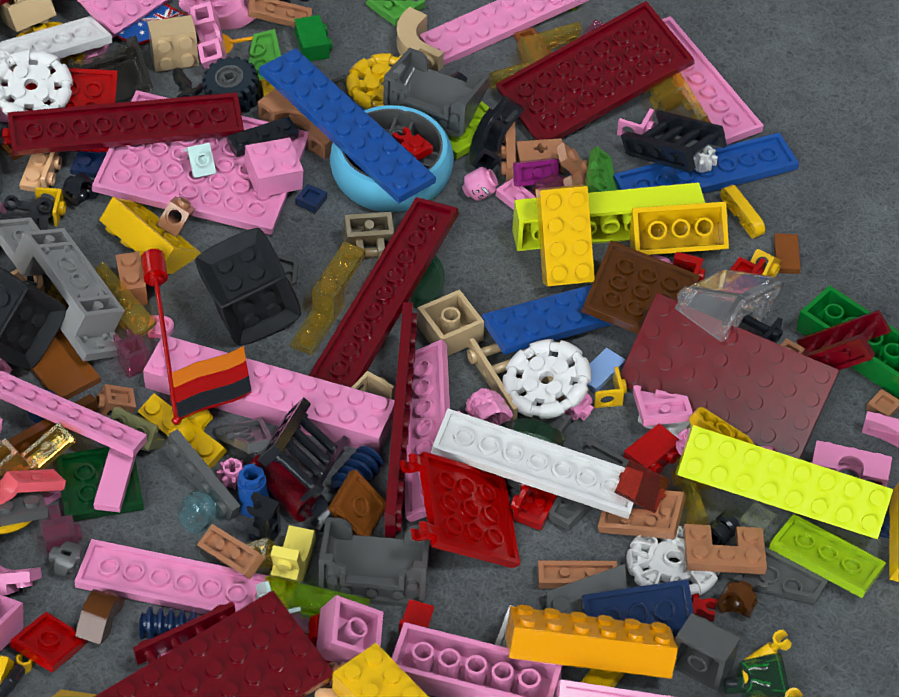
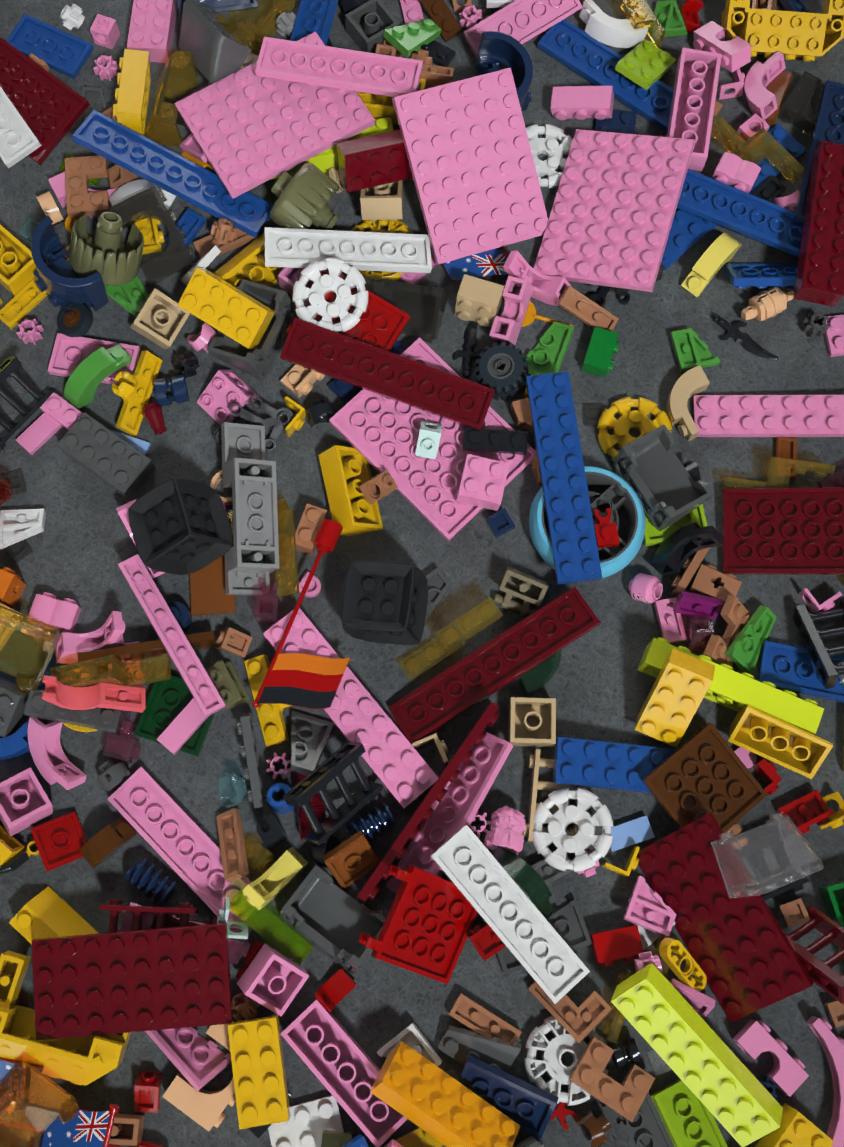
camera: 30 degrees right, 25 degrees up
(642, 486) = (580, 984): clear red piece -> none

